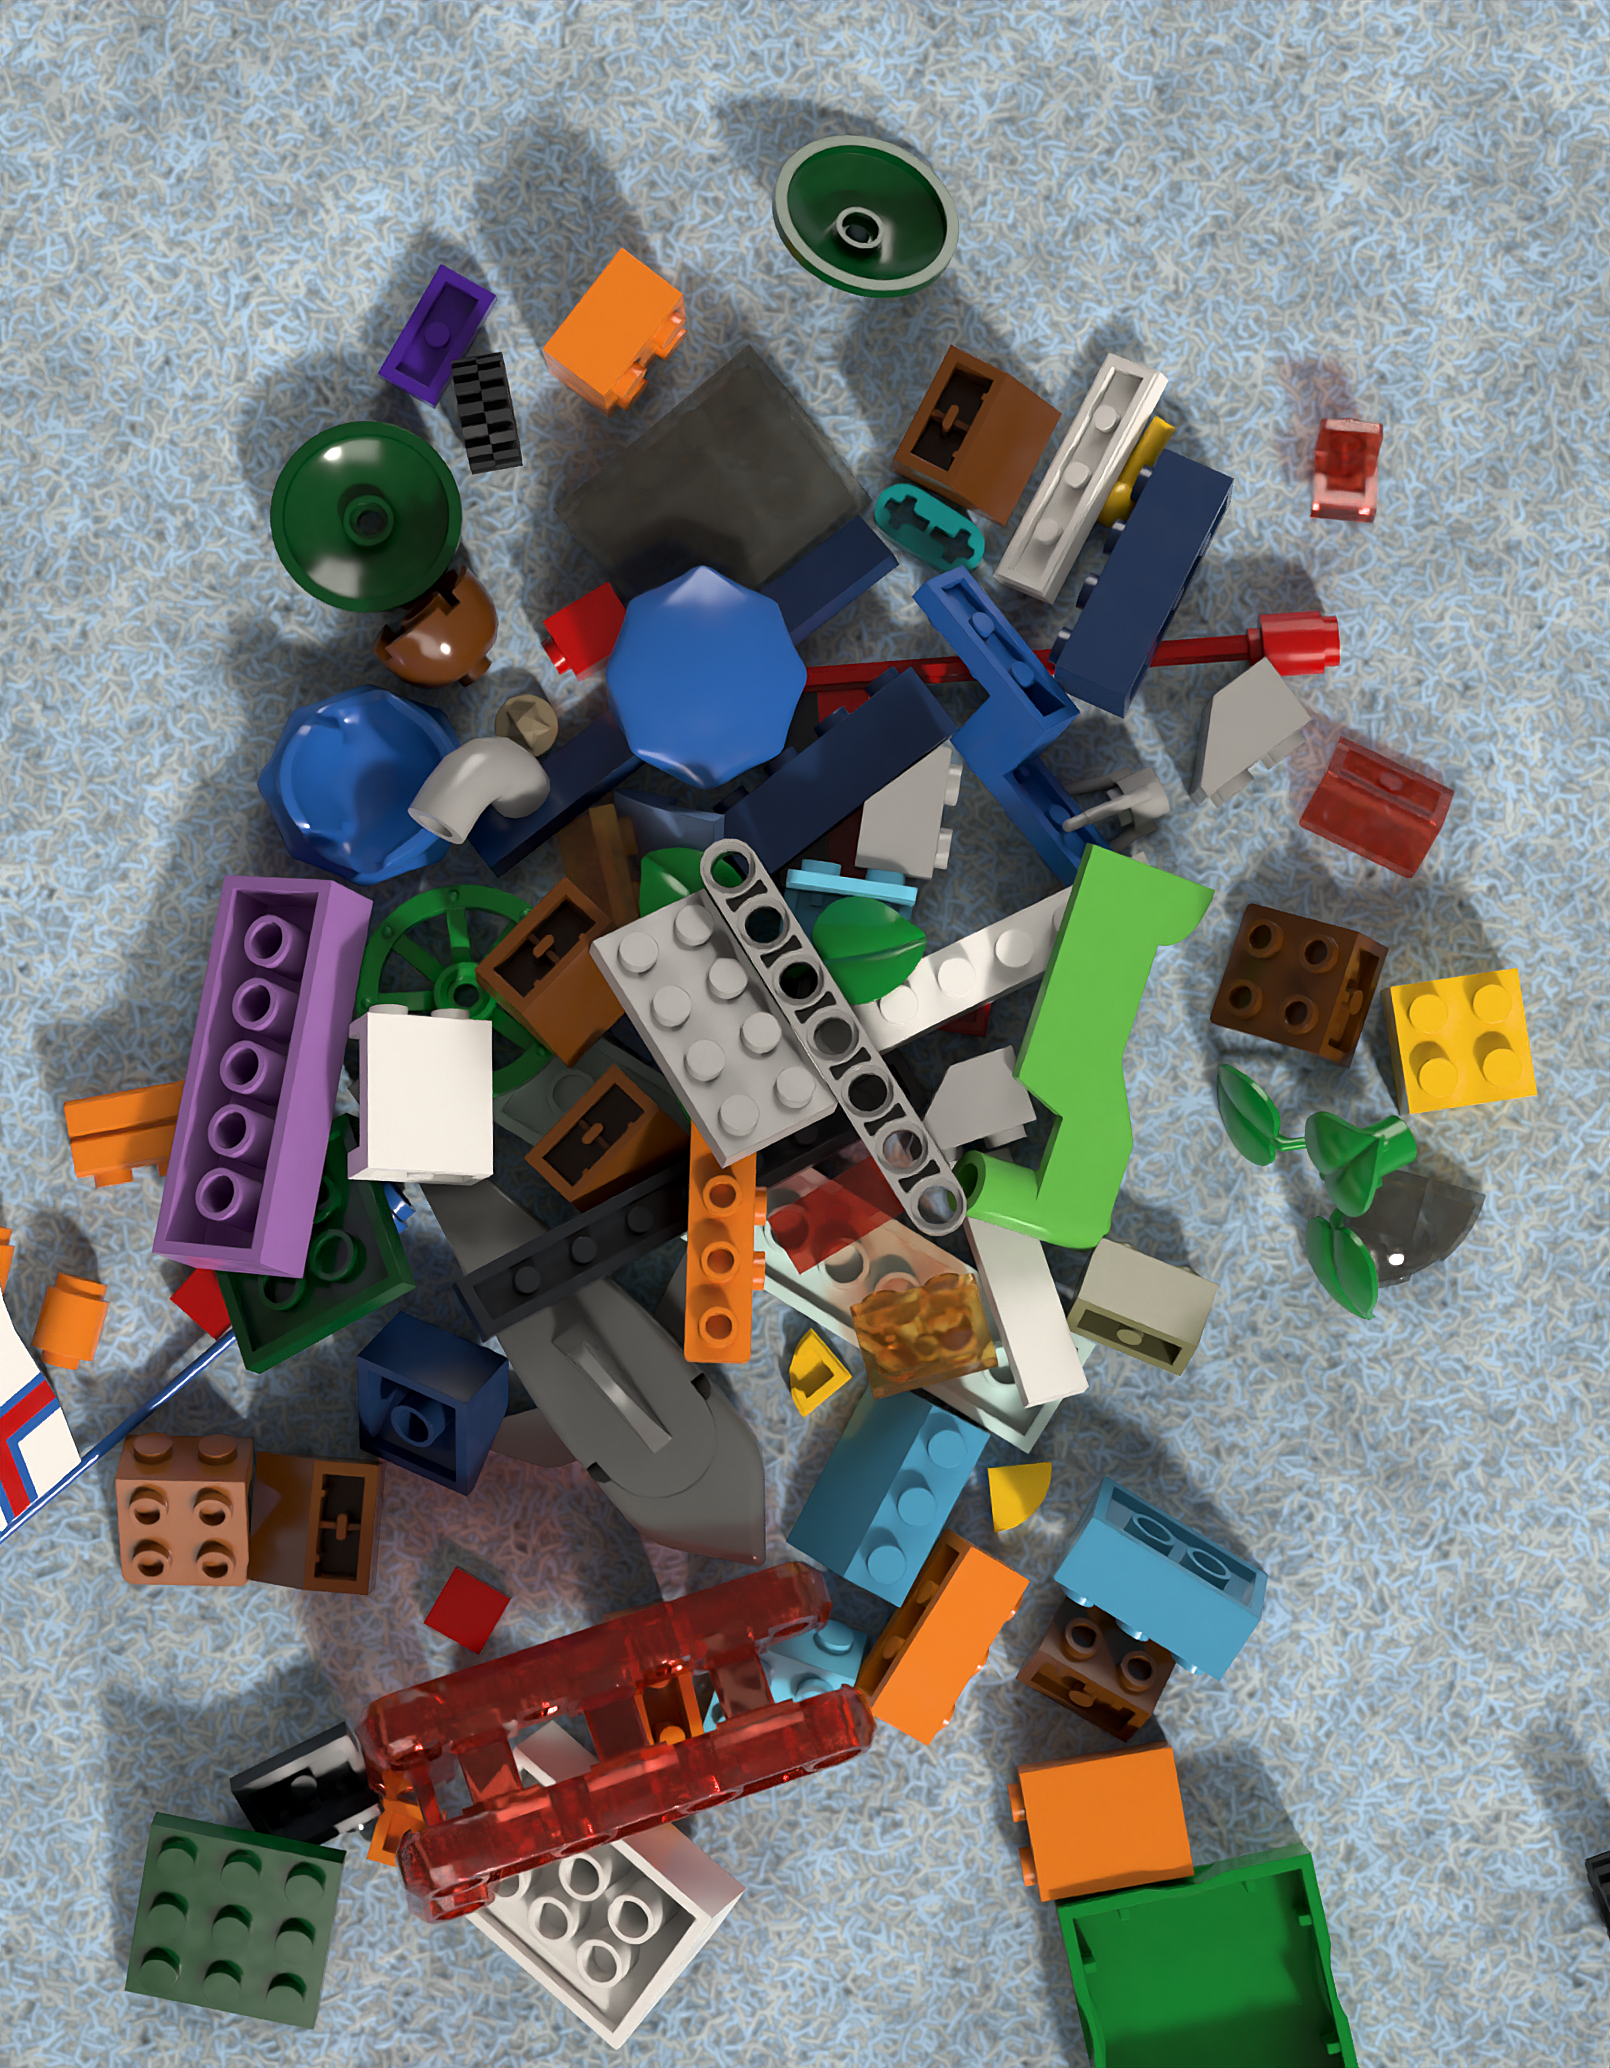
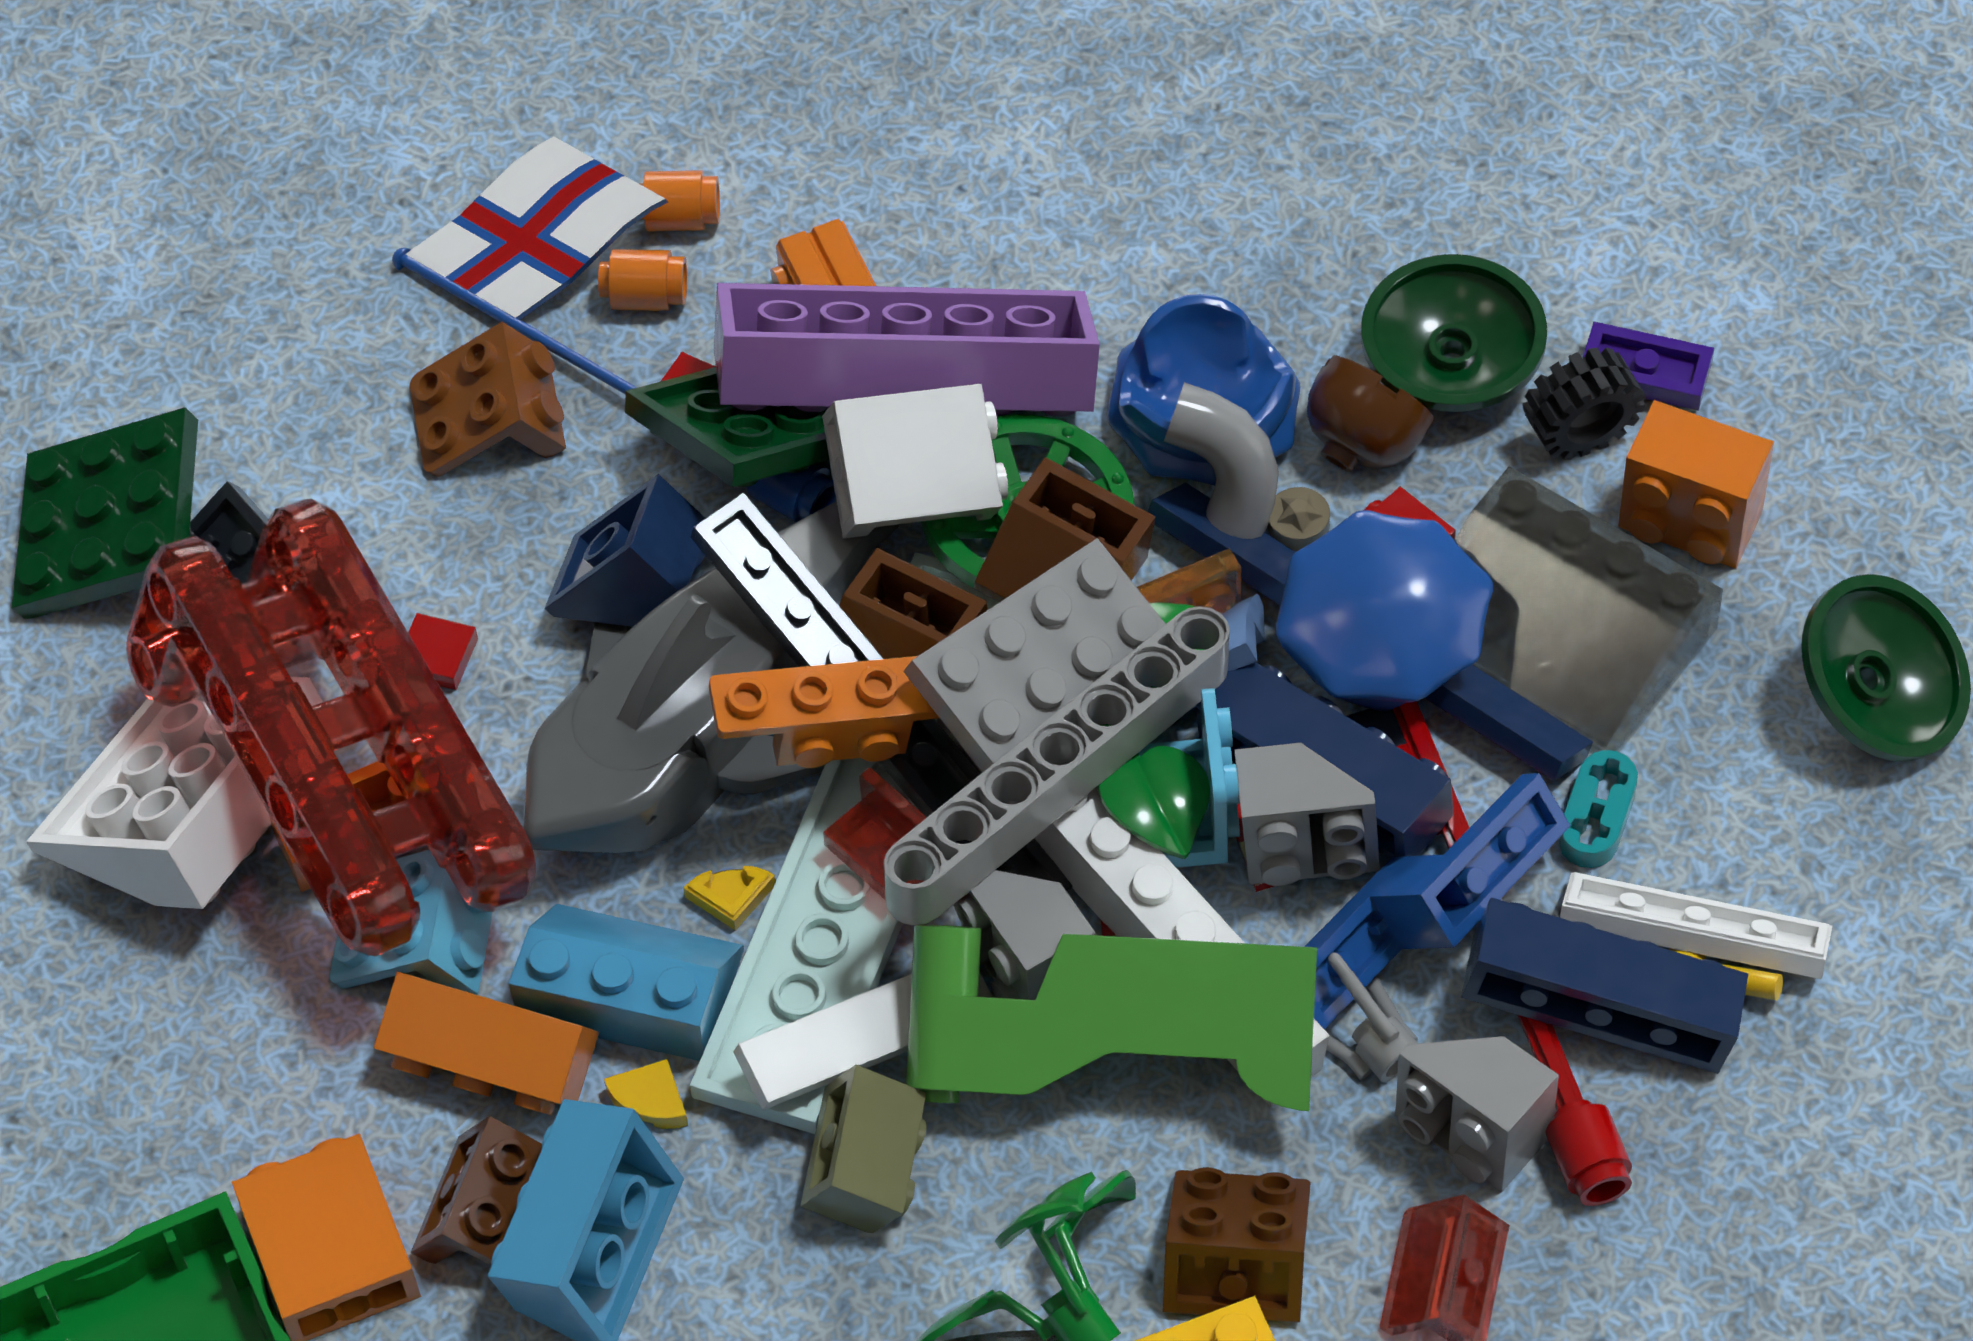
camera: 85 degrees right, 30 degrees down
(316, 1522) = (496, 510): reddish brown slope -> none
(923, 1334) = (788, 947): clear orange bracket -> none
(976, 437) = (1703, 813): reddish brown slope -> none
(1345, 470) = (1785, 1162): clear red bracket -> none

